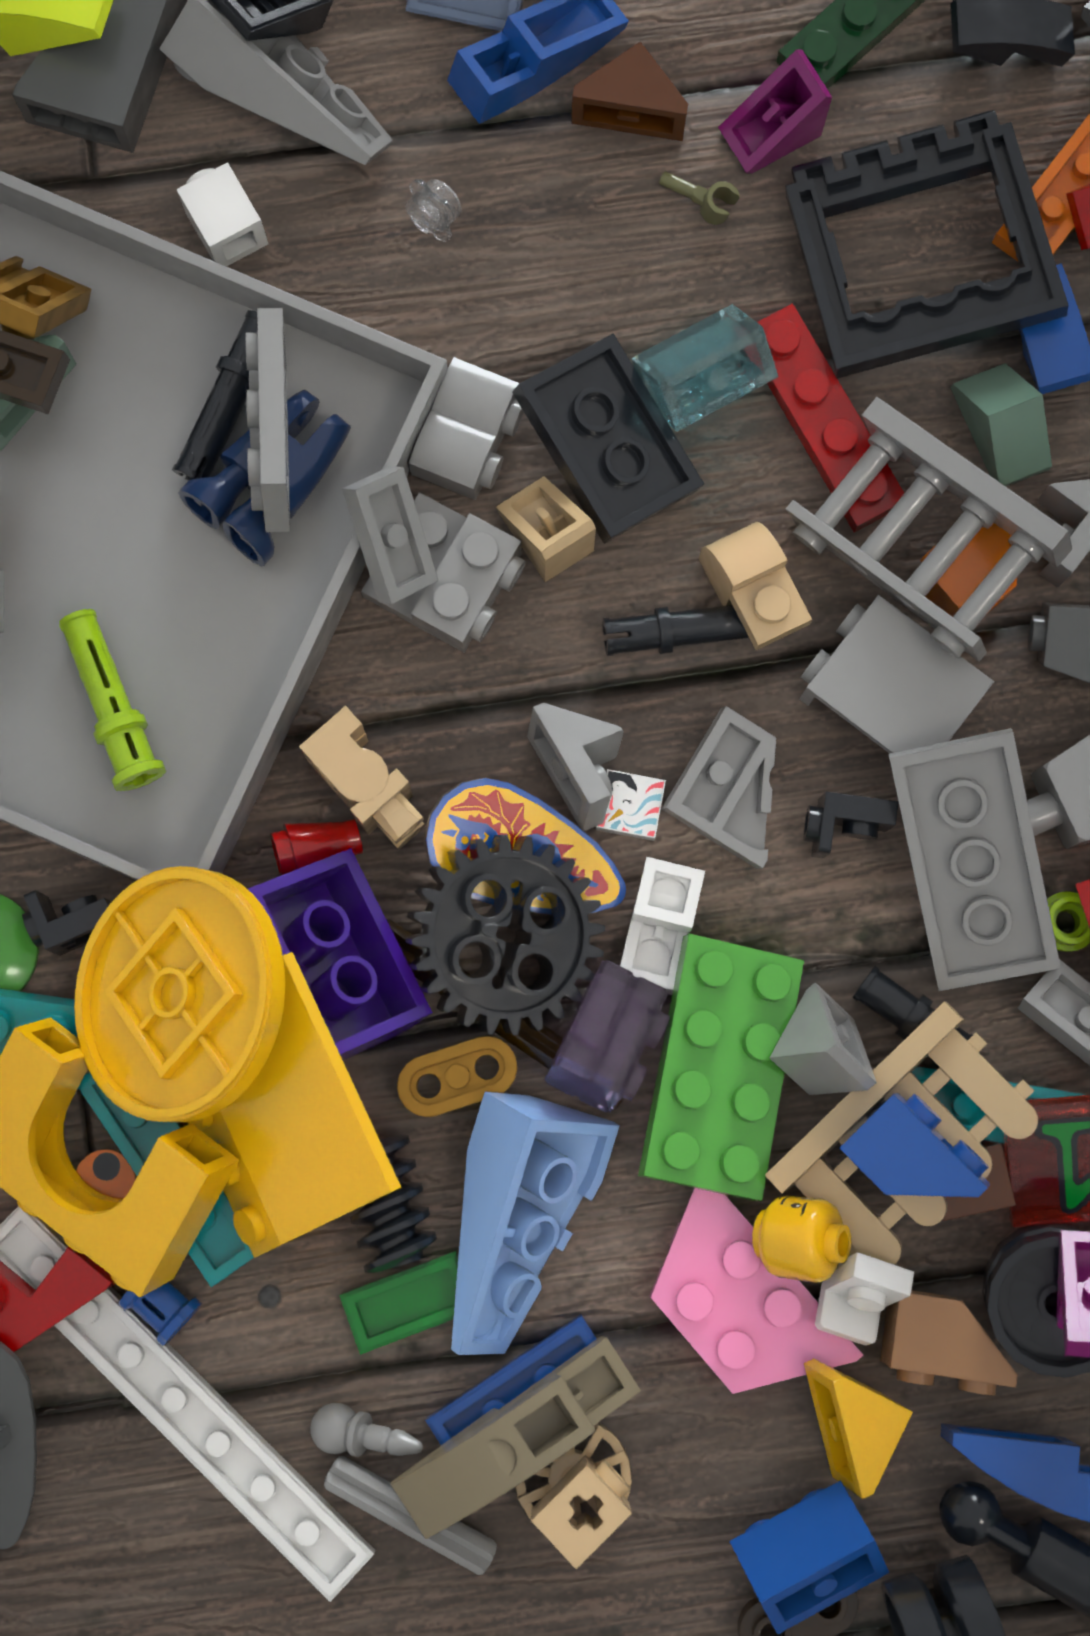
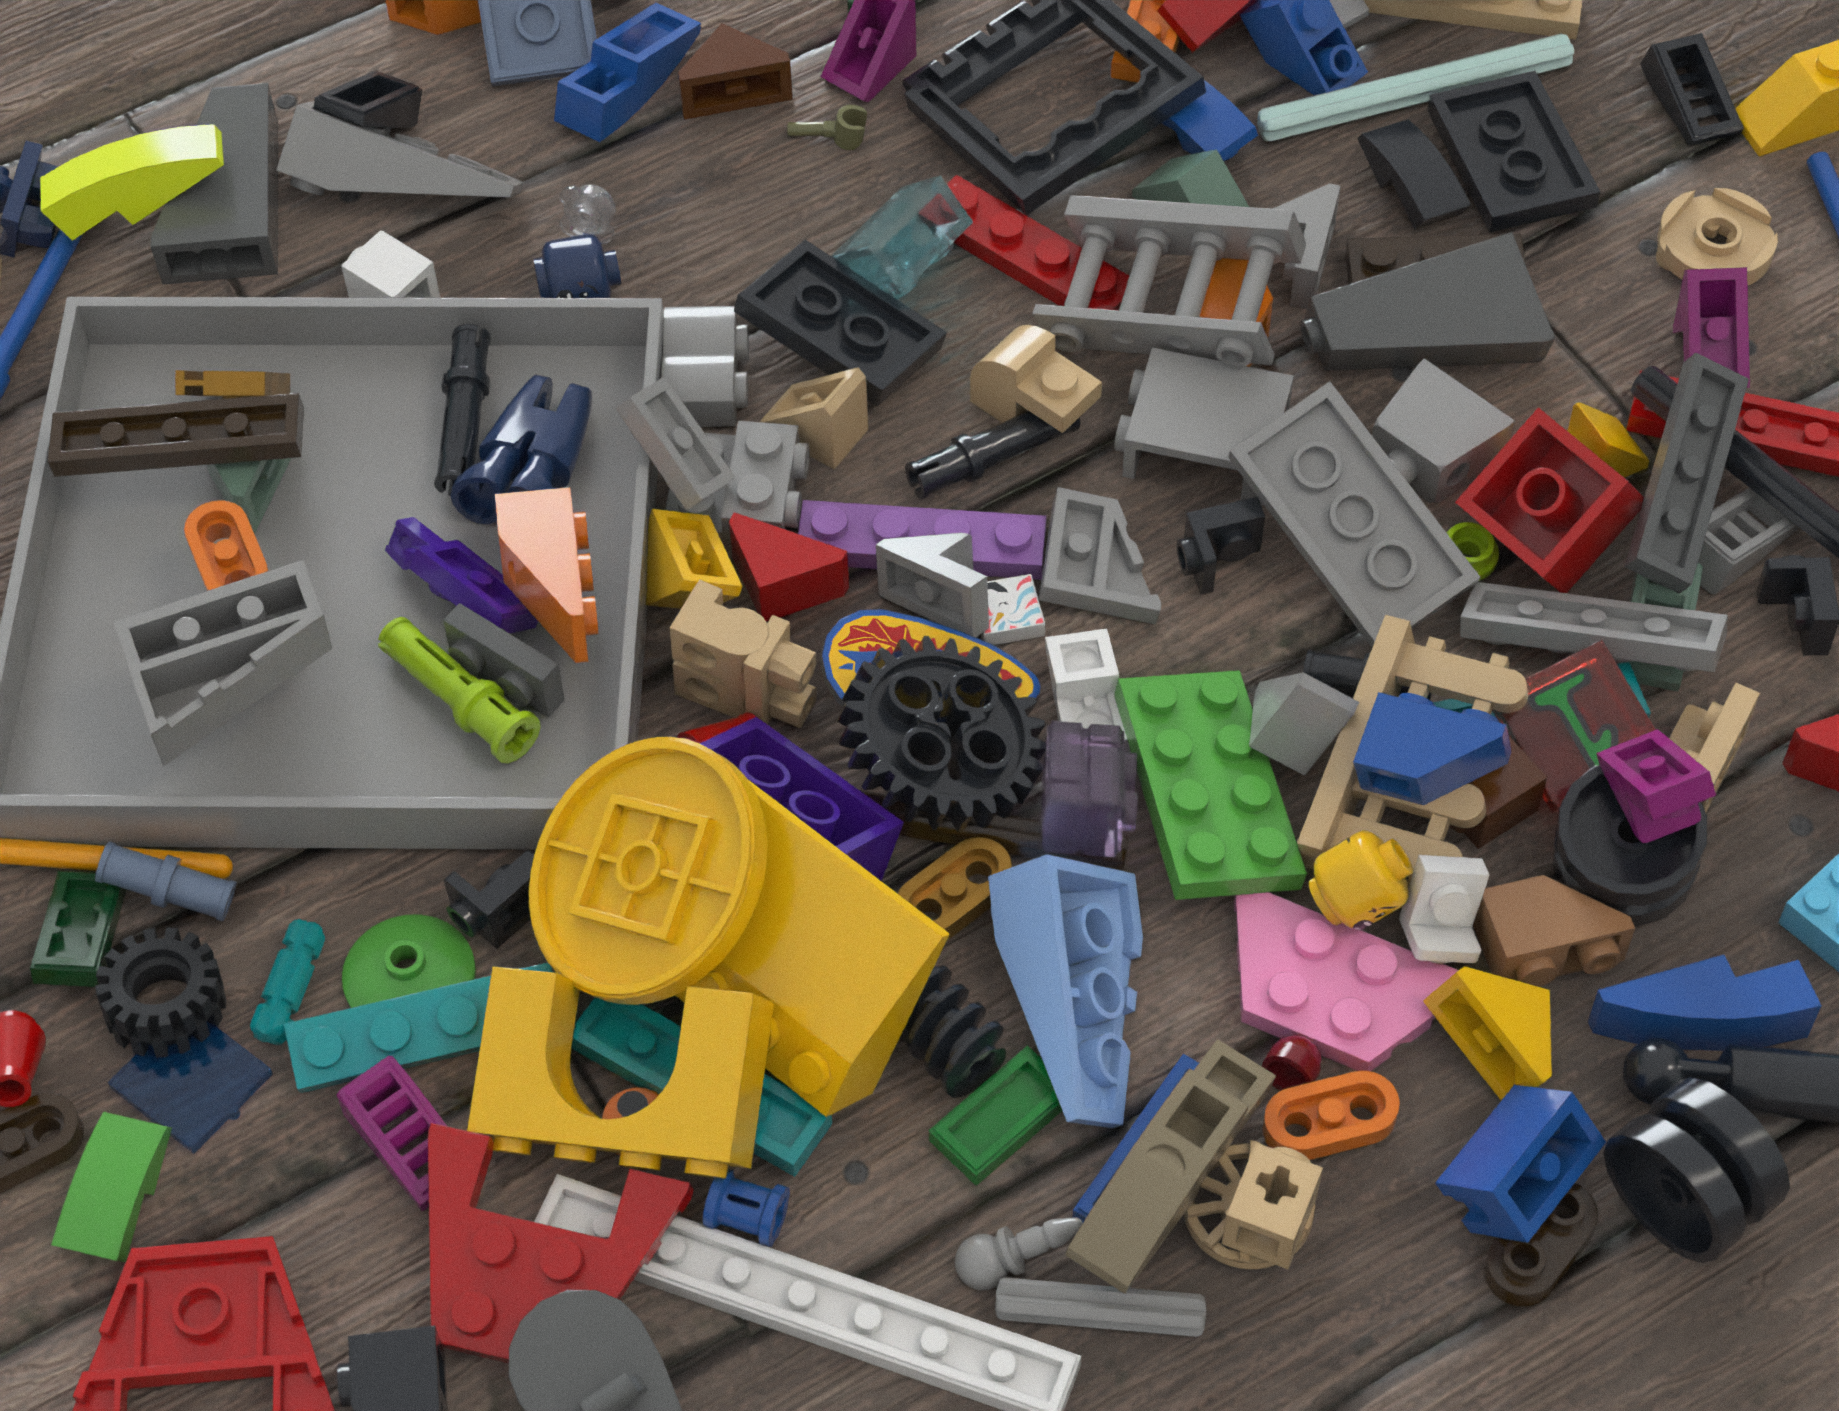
camera: 20 degrees left, 25 degrees down
(142, 672) = (500, 657): none -> dark grey plate
(157, 589) = (457, 575): none -> dark purple hinge
(227, 598) = (542, 563): none -> slope
(268, 420) = (527, 374): light grey plate -> none
(361, 653) = (682, 552): none -> yellow slope
(394, 276) = (576, 268): none -> dark blue head
(445, 685) = (786, 568): none -> red slope
(559, 678) = (1001, 542): none -> medium lavender plate
(670, 1365) = (1293, 1061): none -> dark red hinge
(675, 1431) = (1326, 1113): none -> orange plate

